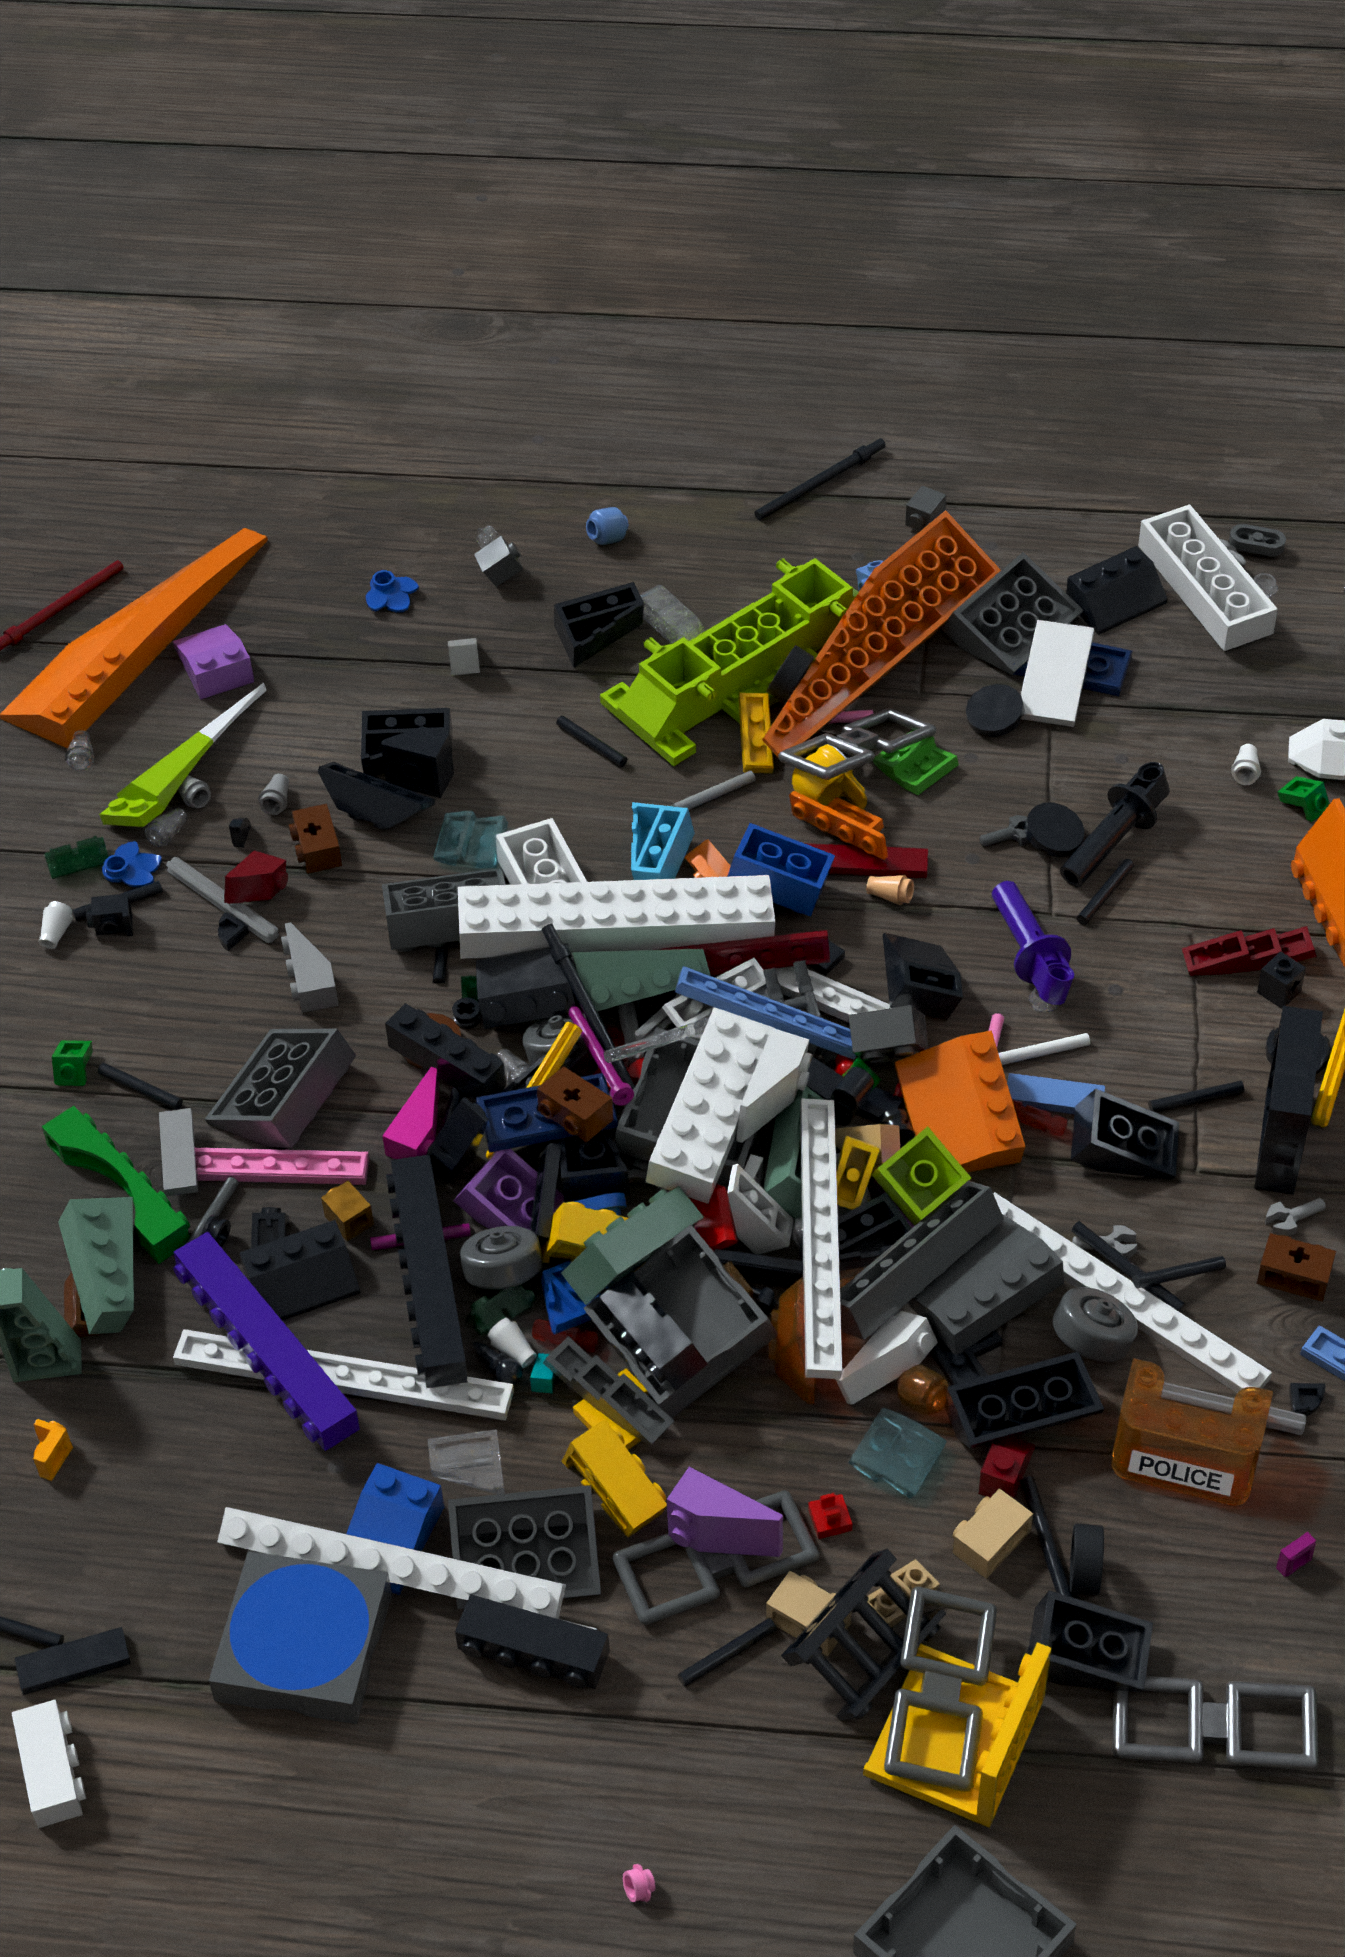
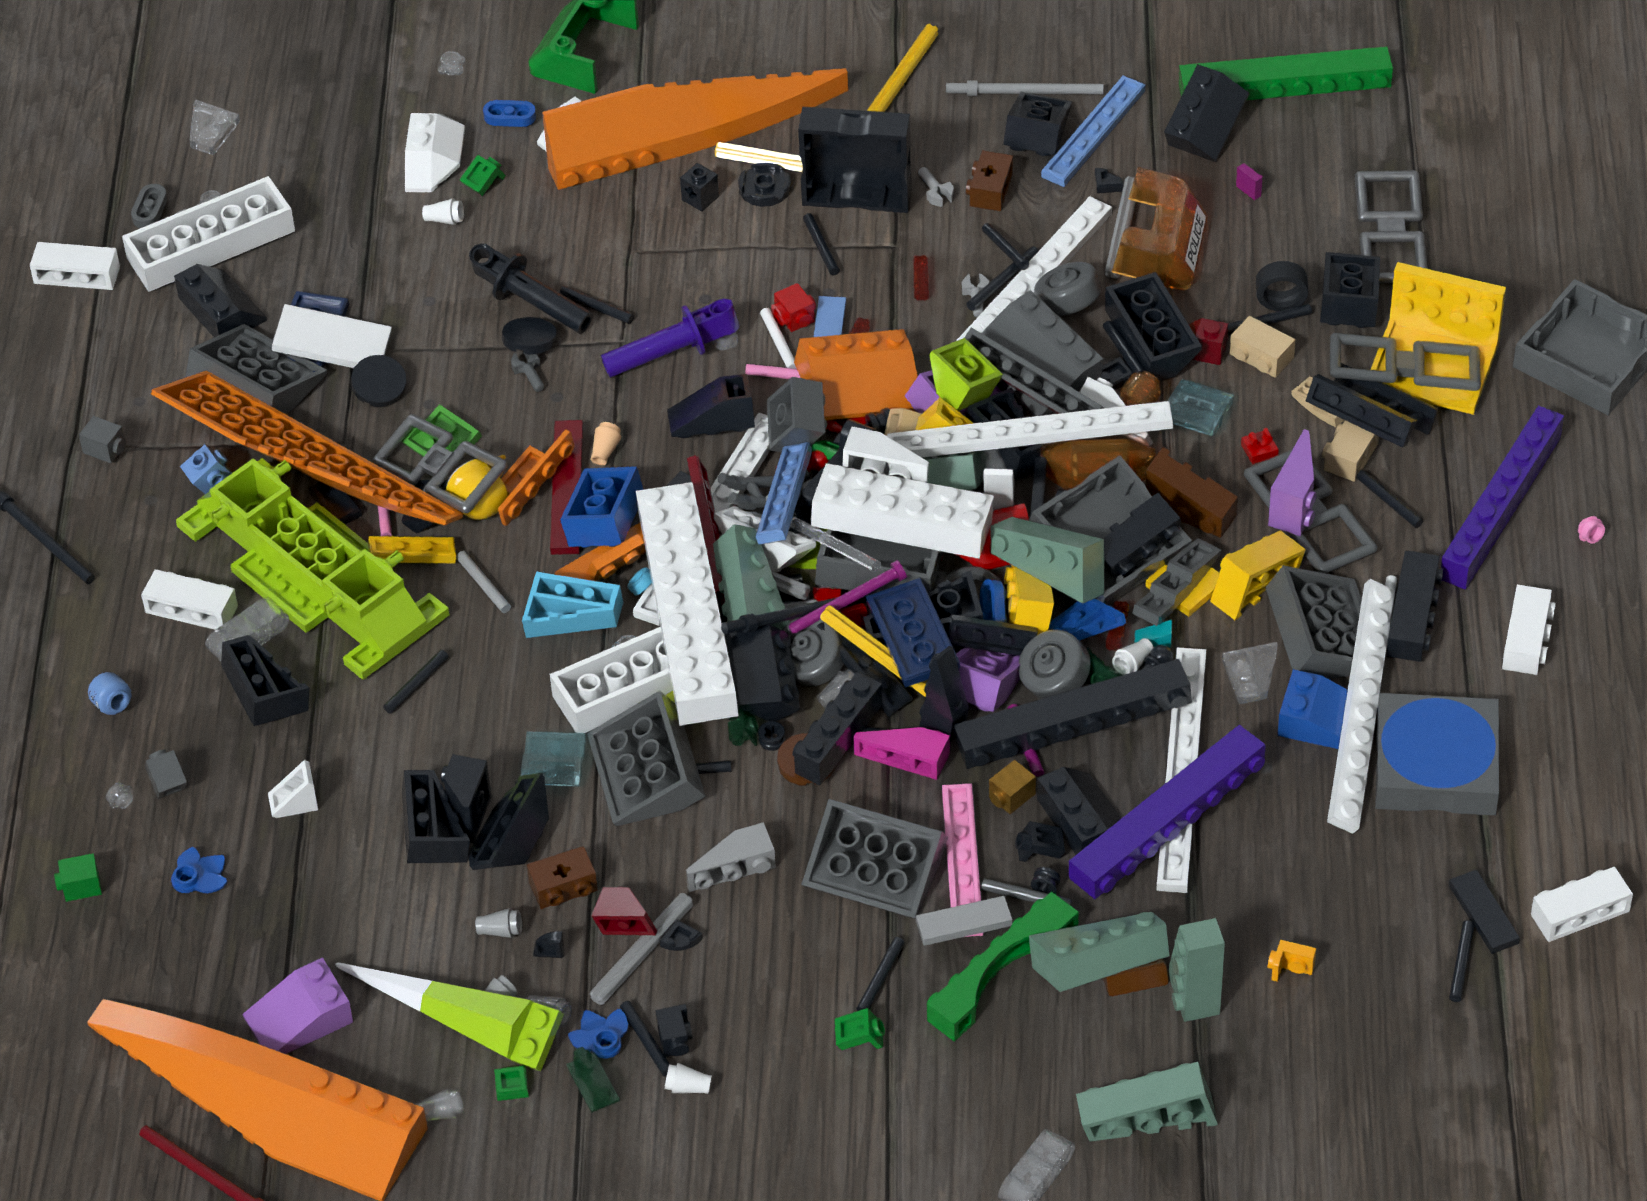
camera: 95 degrees left, 0 degrees up
(94, 802) = (511, 1083): none -> green tile
(397, 513) = (78, 877): none -> green brick
(478, 1773) = (1528, 630): none -> white brick
(575, 1104) = (918, 596): reddish brown brick -> none
(705, 1779) = (1501, 497): none -> dark purple brick
(714, 576) = (189, 599): none -> white brick
(741, 1417) = (1193, 499): none -> reddish brown wedge
(790, 674) = (343, 522): black tyre -> none
(1084, 1058) = (793, 307): none -> red brick
(1123, 1138) = (875, 284): black slope -> none
(1135, 1188) = (921, 283): none -> clear red axle
(1171, 482) = (75, 265): none -> white brick
(1244, 954) = (664, 210): dark red slope -> none

